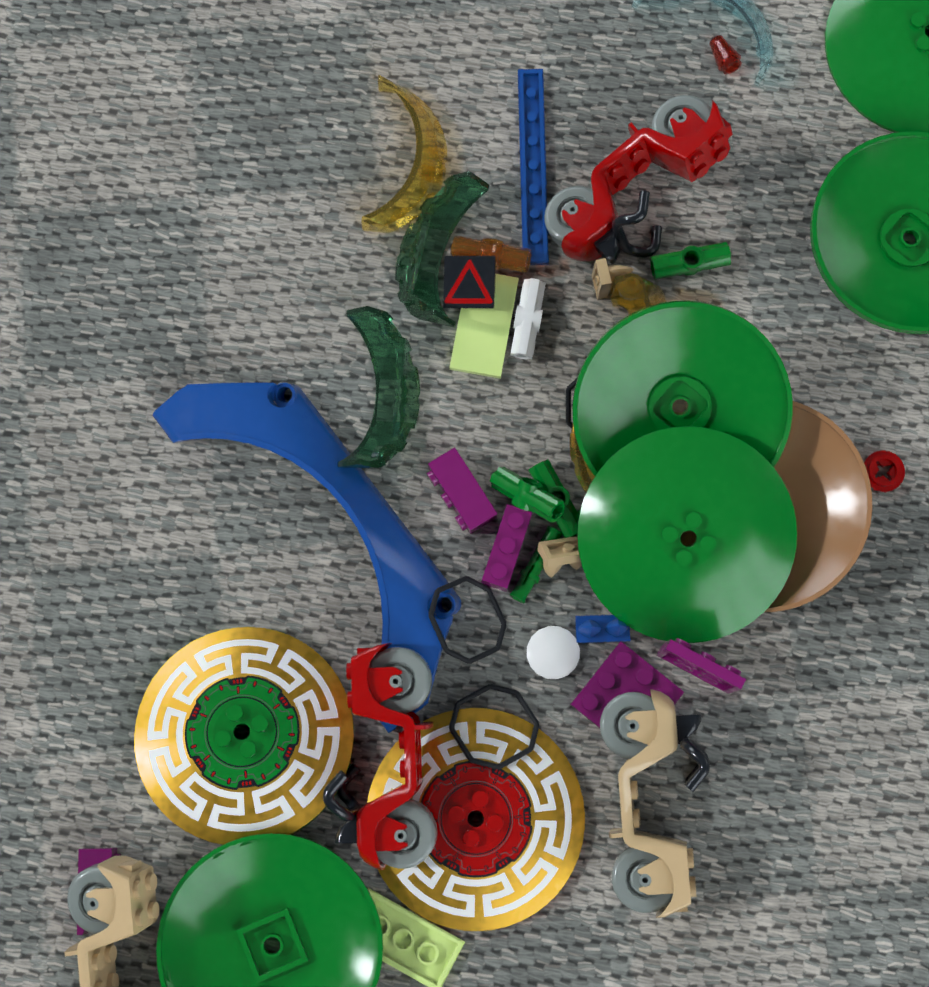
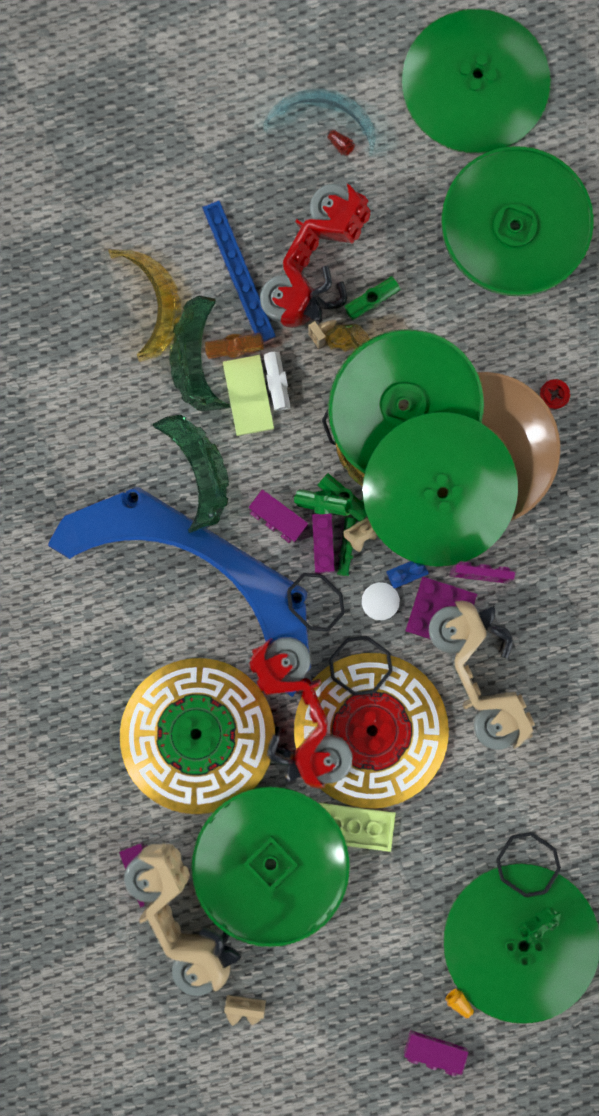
camera: 20 degrees left, 5 degrees up
(469, 281) = (227, 371): black piece -> none

